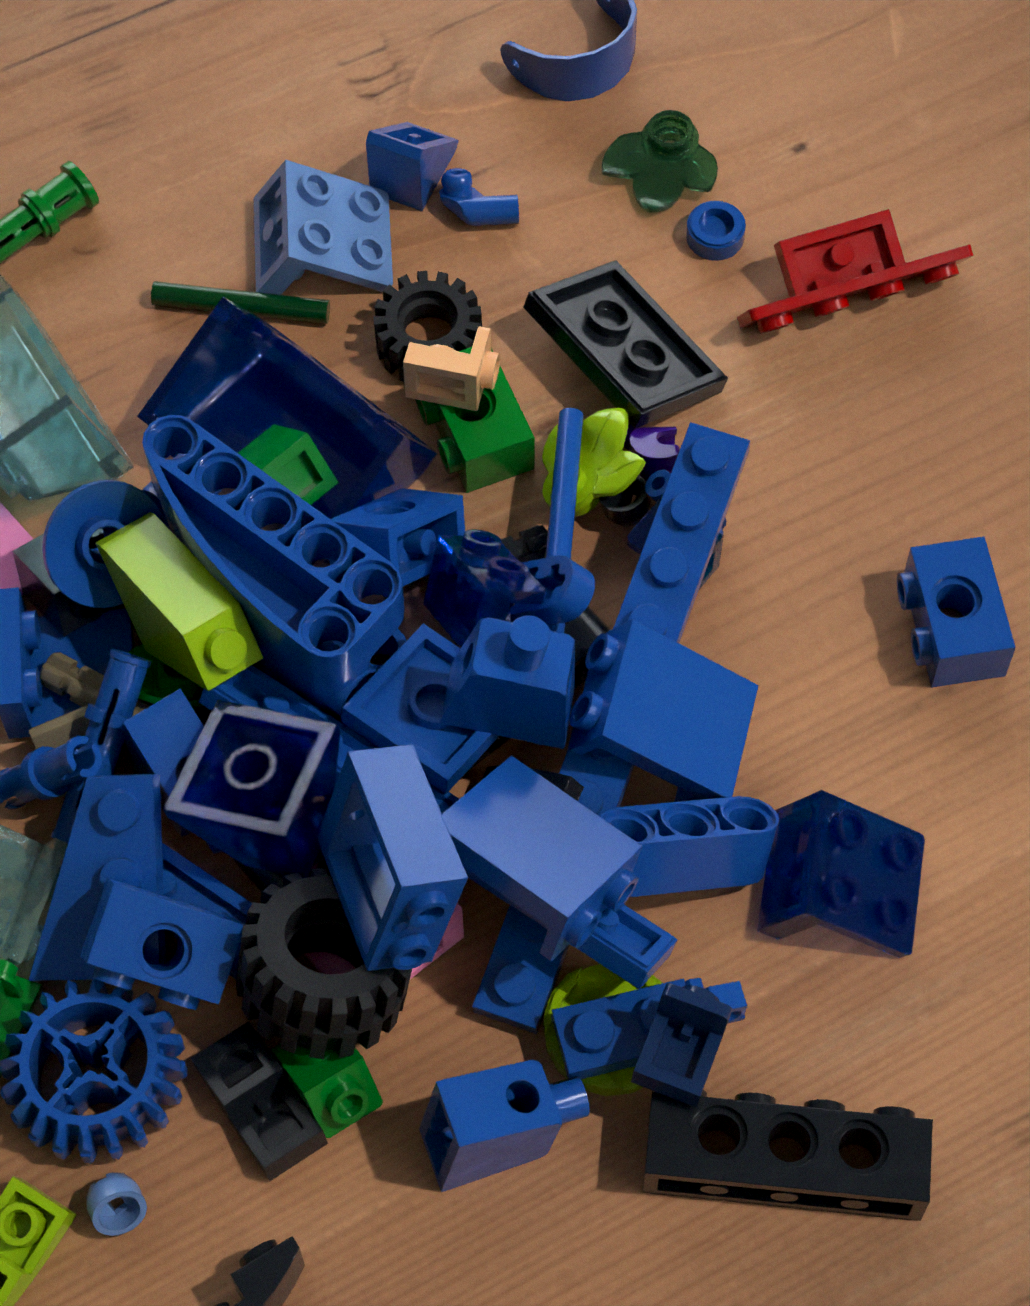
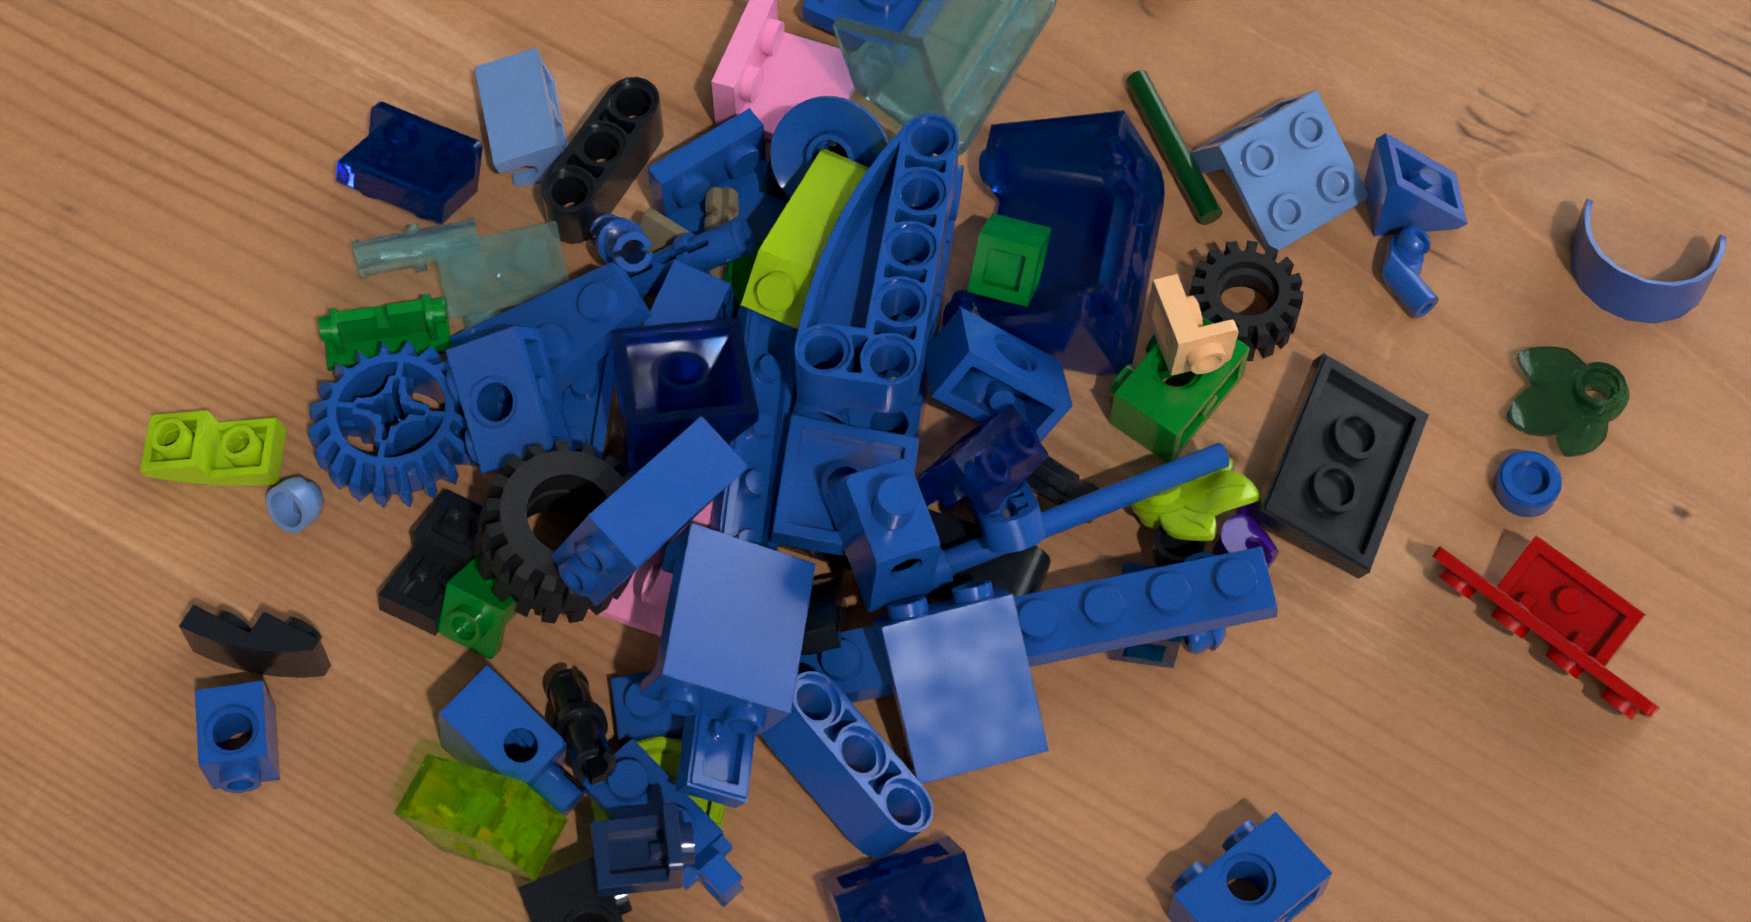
camera: 60 degrees right, 0 degrees up
(510, 1045) = (581, 726): none -> black pin
(559, 1172) = (481, 816): none -> clear neon green brick

